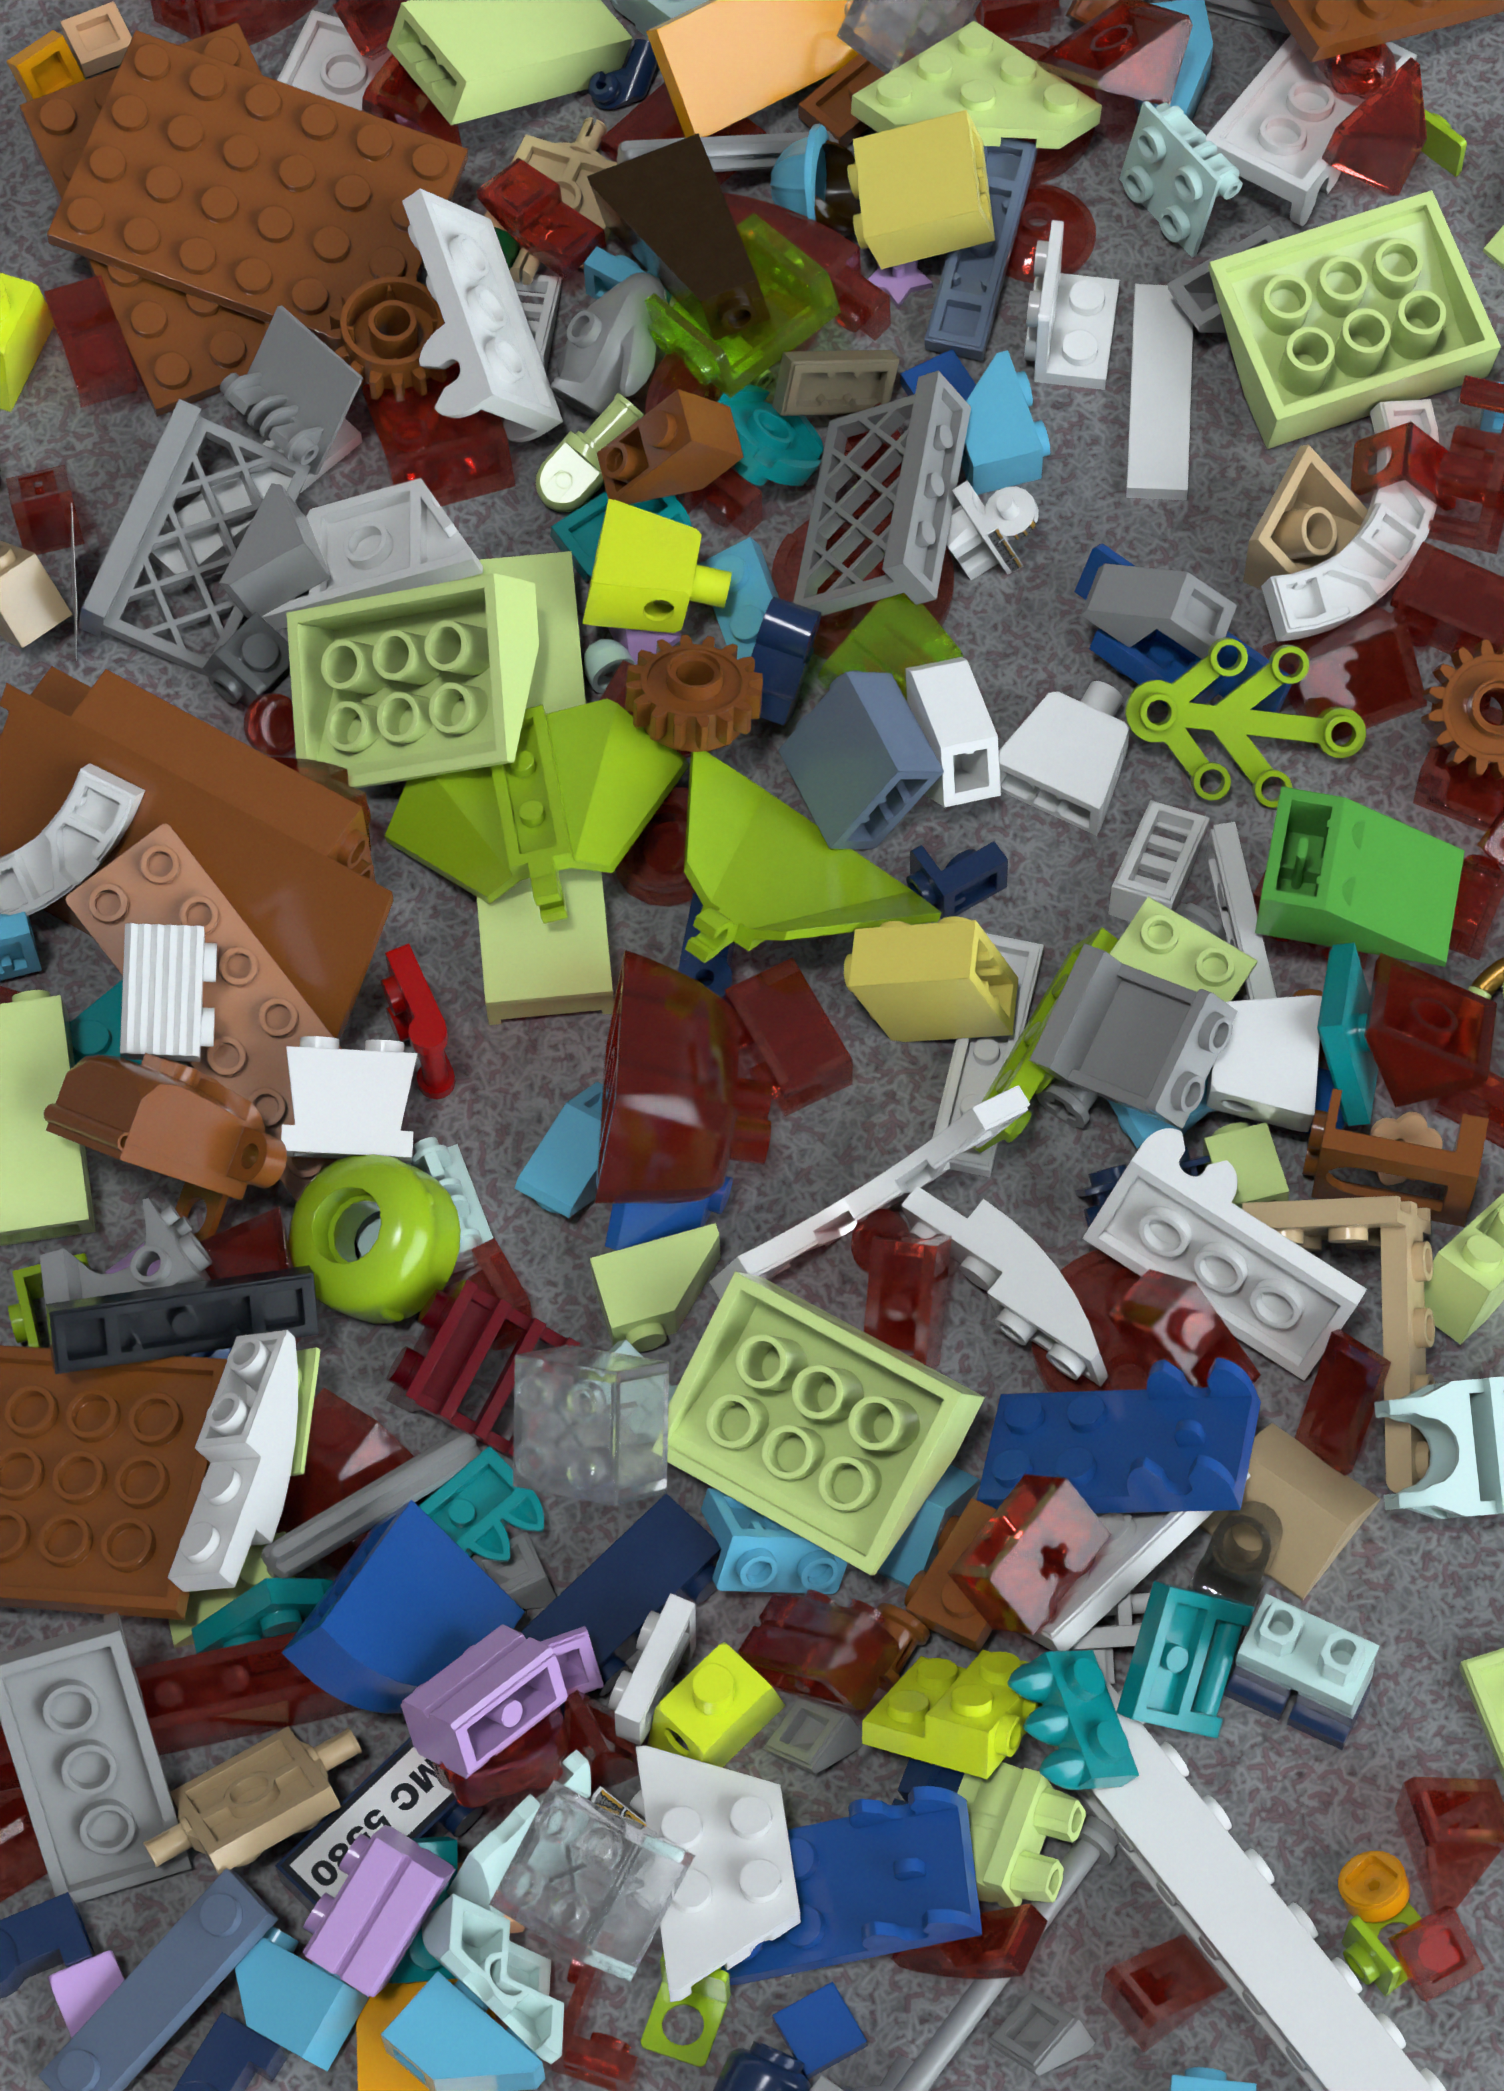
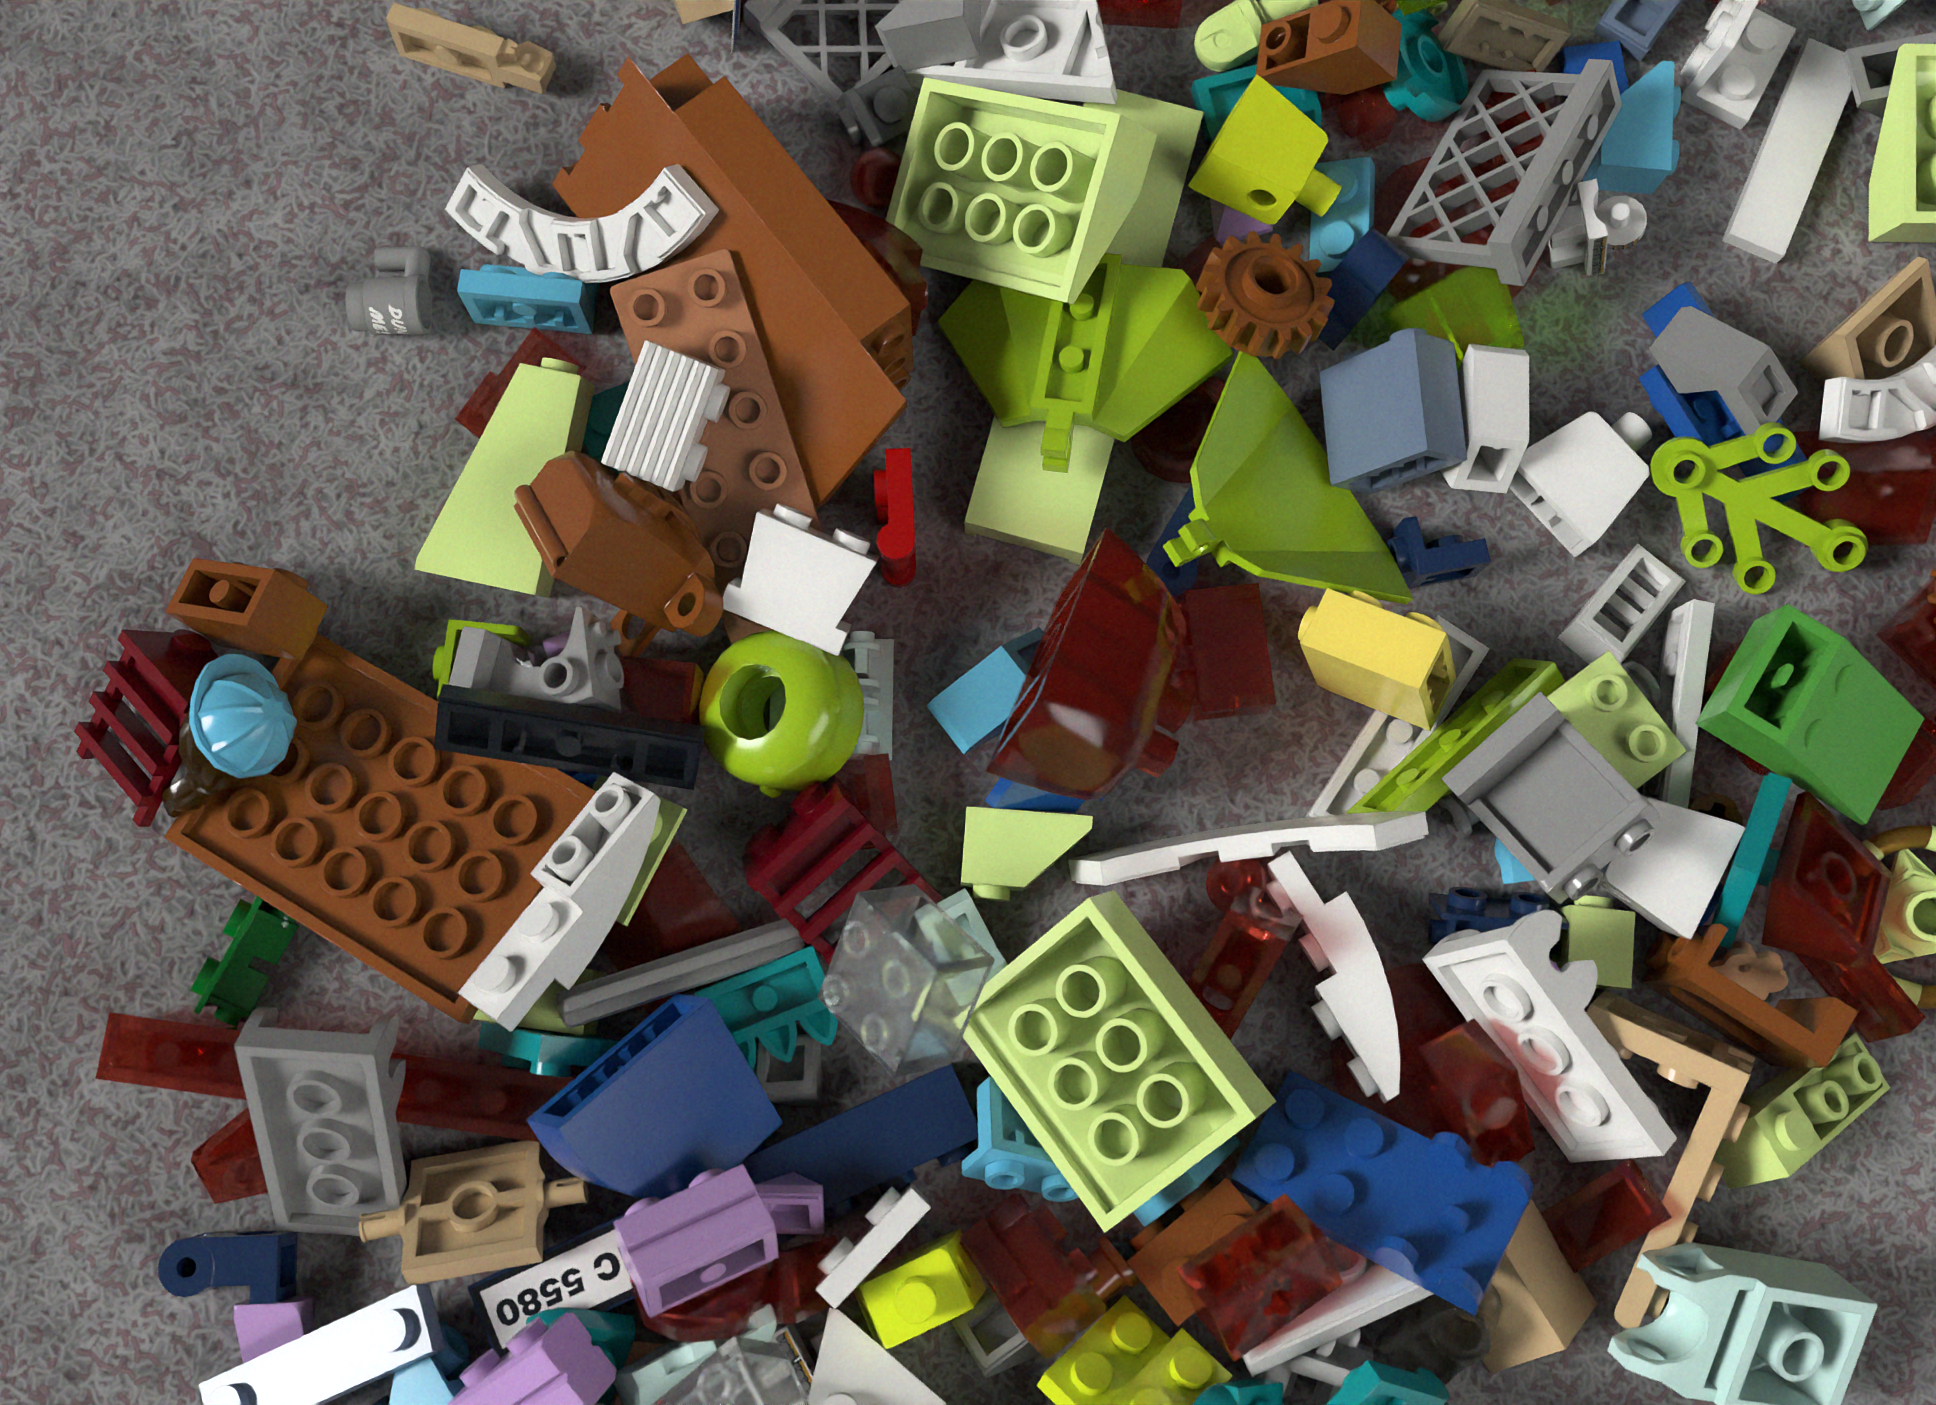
camera: 15 degrees right, 15 degrees up
(602, 658) = (1193, 223): light aqua hinge -> none

